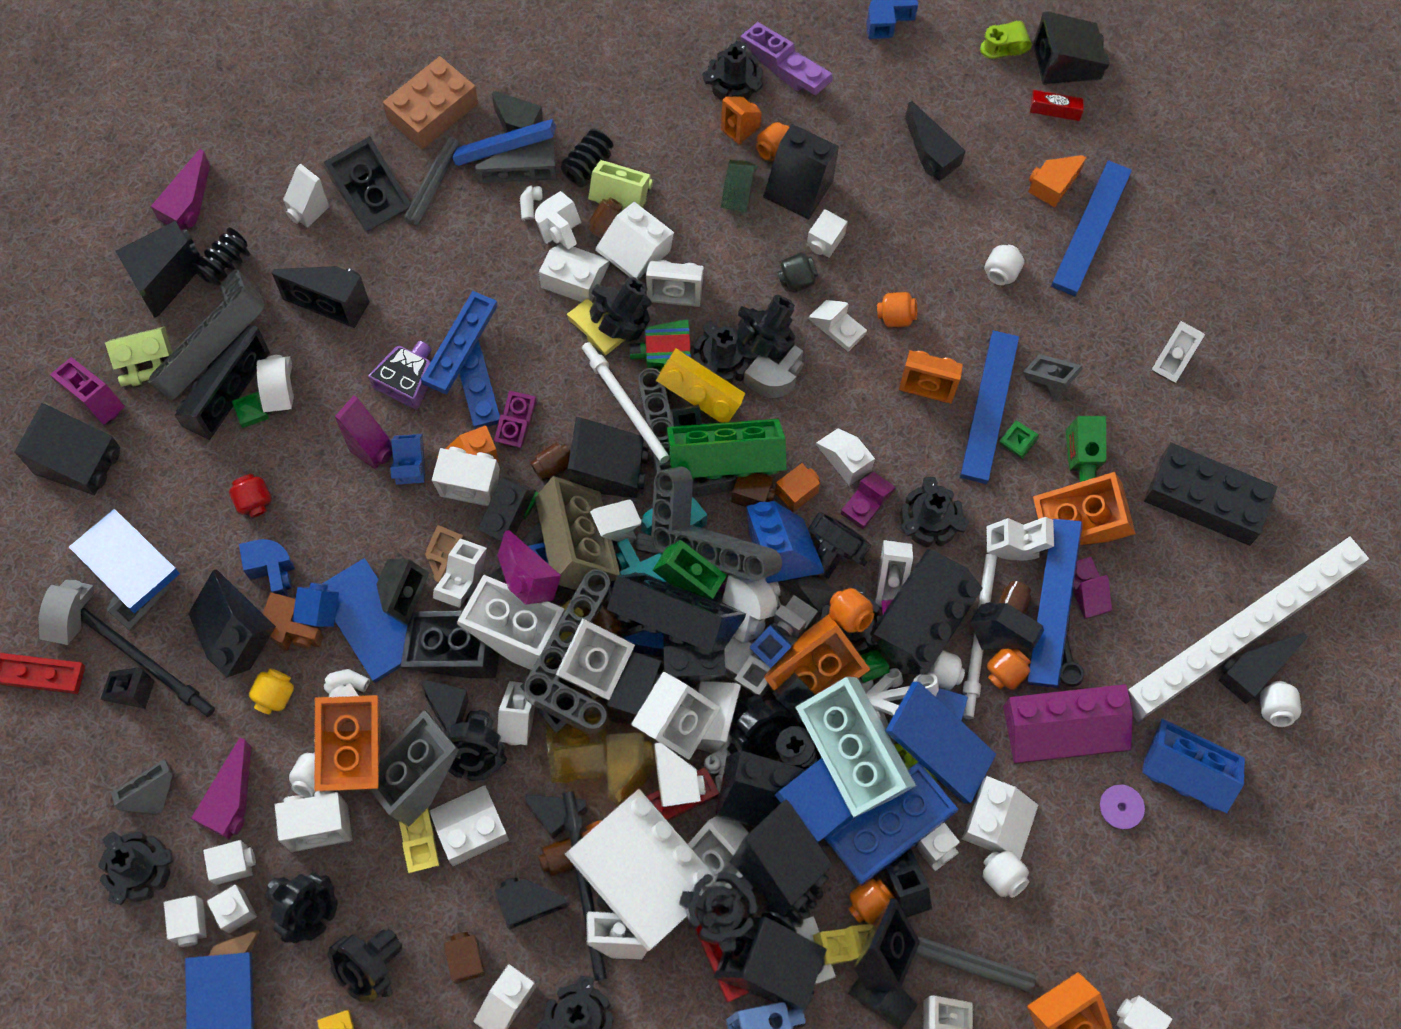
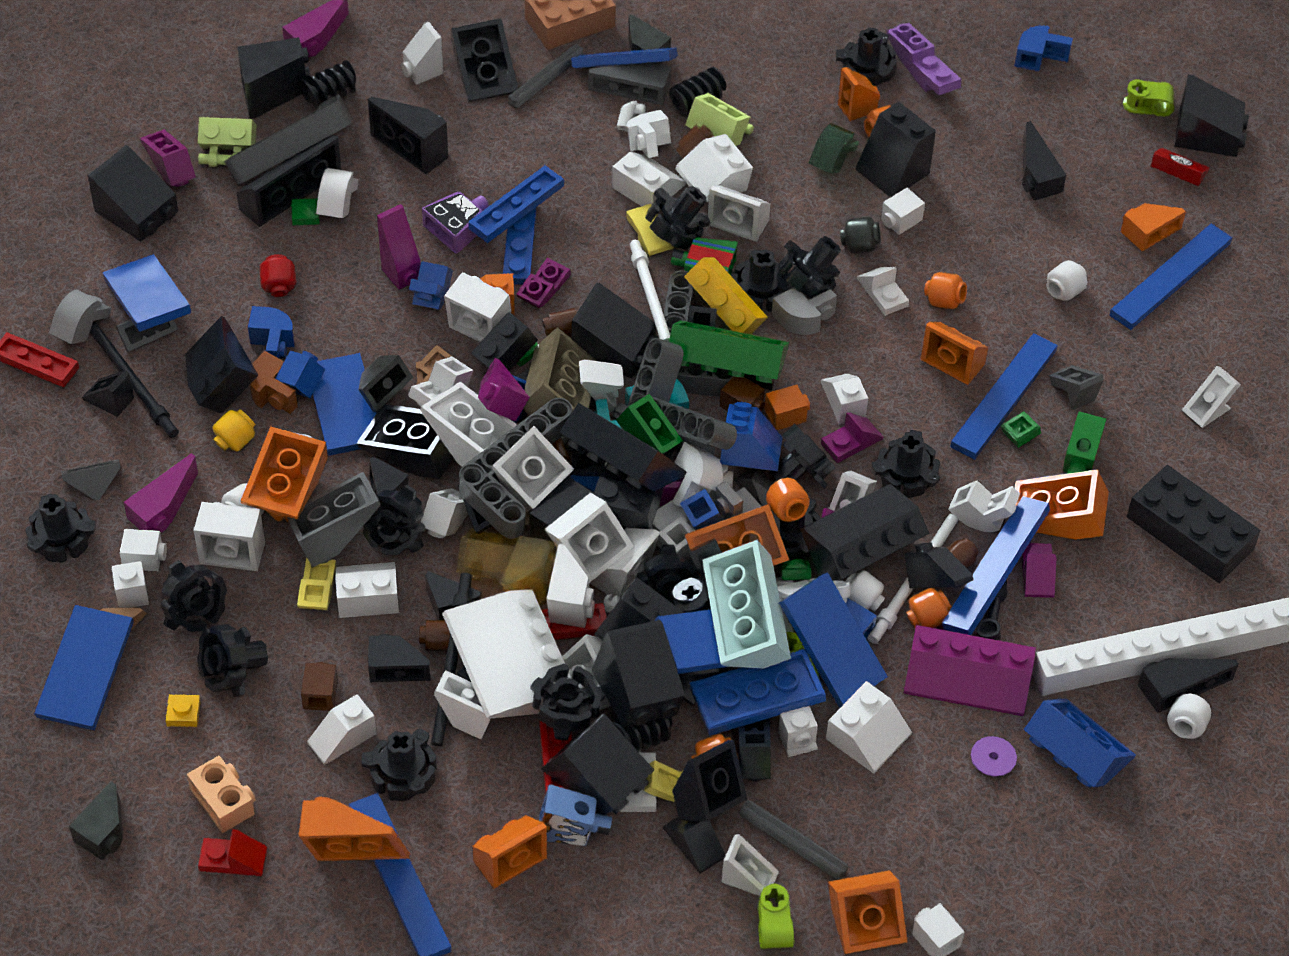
camera: 20 degrees right, 15 degrees down
(185, 920) = (86, 582): white brick -> none
(1005, 873) = (854, 773): white head -> none

